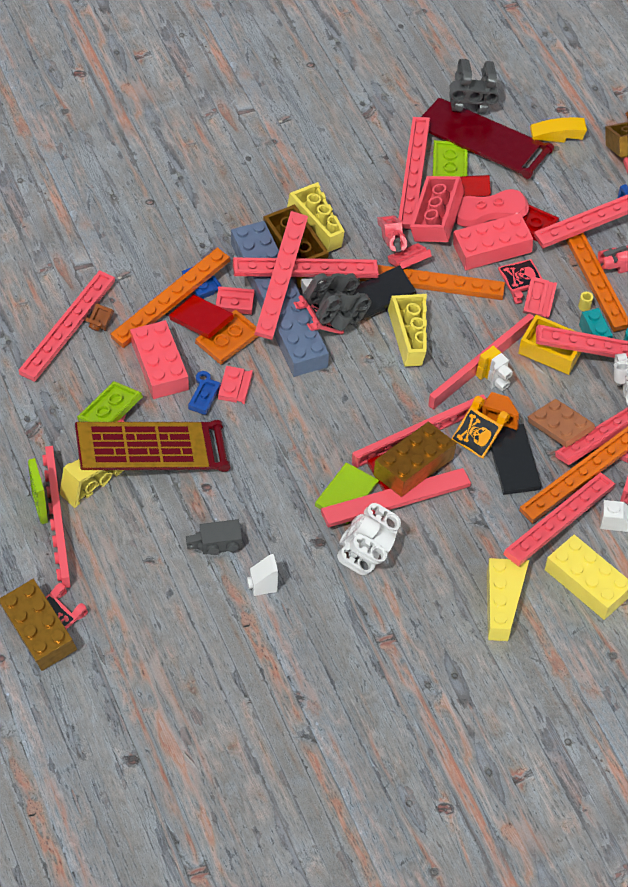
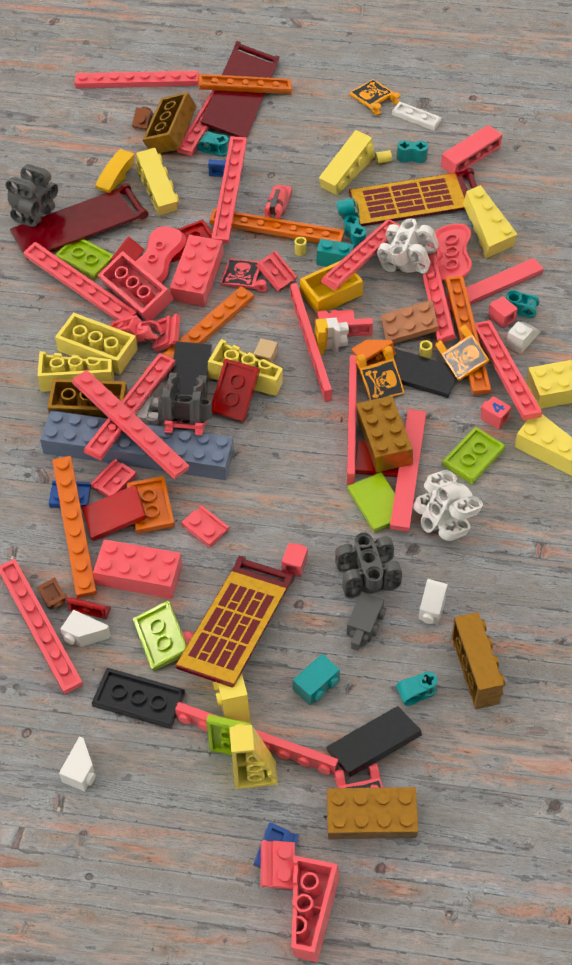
camera: 55 degrees left, 0 degrees up
(25, 512) = (251, 759): none -> light yellow wedge
(47, 422) = (138, 698): none -> black tile
(80, 354) = (83, 630): none -> white slope
(106, 347) = (88, 607): none -> red slope
(106, 597) = (374, 741): none -> black tile
(137, 530) = (316, 679): none -> teal brick
(176, 606) = (417, 688): none -> teal piece
(204, 393) = (200, 553): blue hinge -> none
(226, 633) = (477, 660): none -> pearl gold brick
(243, 460) = (295, 558): none -> coral brick
(265, 508) = (370, 564): none -> dark grey piece
(359, 215) = (94, 339): none -> light yellow brick
(380, 331) = (234, 389): none -> red tile
(442, 335) = (266, 350): none -> tan brick
(451, 542) = (473, 455): none -> lime tile
(508, 533) = (495, 412): none -> coral brick
(523, 374) = (357, 327): none -> coral plate
(540, 450) = (425, 349): none -> light yellow hinge
(553, 480) = (464, 356): none -> flag
(569, 162) = (156, 181): none -> light yellow wedge

